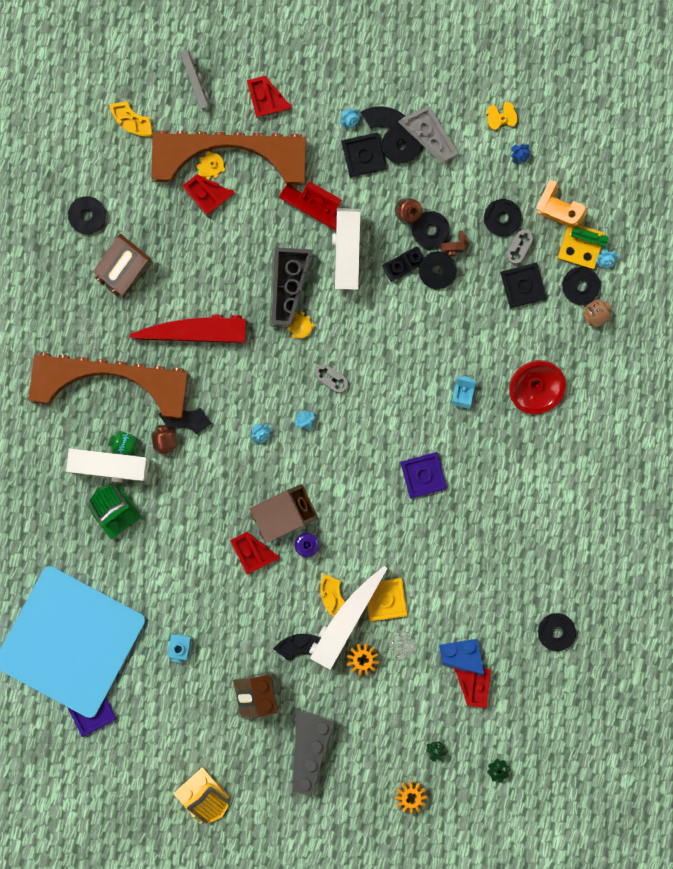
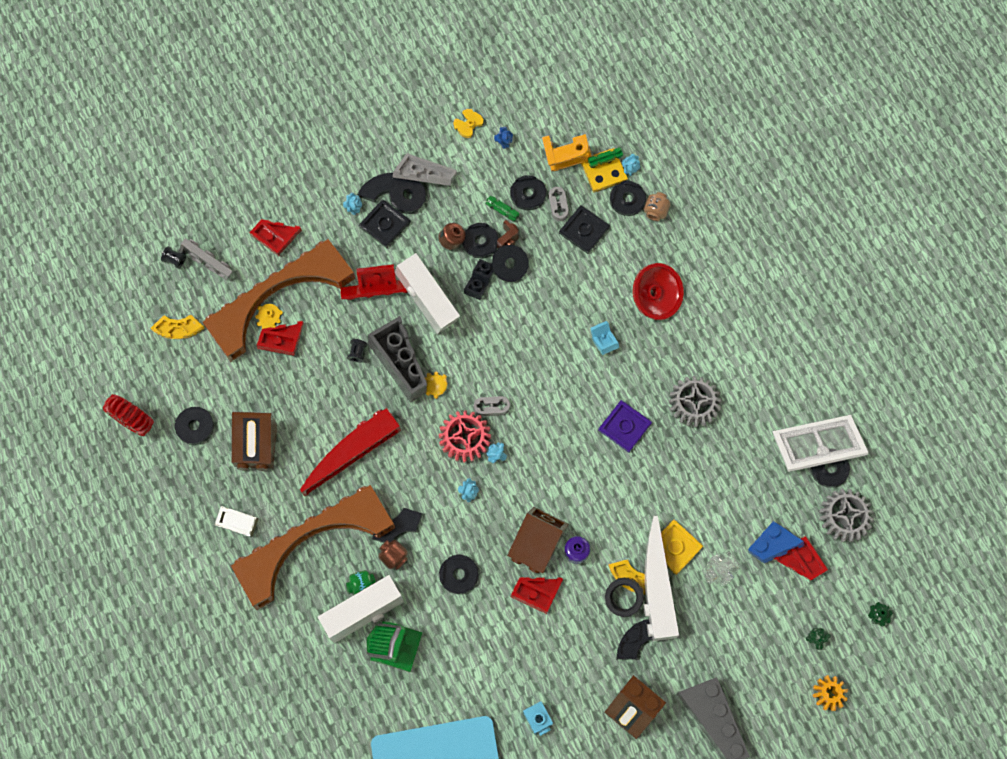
camera: 35 degrees left, 15 degrees down
(39, 170) = (128, 415): none -> red gear
(64, 320) = (236, 521): none -> tile
(165, 50) = (173, 257): none -> black bush
(203, 504) = (463, 585): none -> black tile
(259, 250) = (356, 350): none -> black bush
(296, 371) = (458, 439): none -> coral gear
(301, 615) = (609, 600): none -> black tyre
(366, 664) = (690, 604): light orange gear -> none
(470, 216) = (502, 208): none -> green axle
(507, 508) = (695, 386): none -> light grey gear
(541, 670) = (847, 523): none -> light grey gear
(564, 607) = (820, 443): none -> clear door

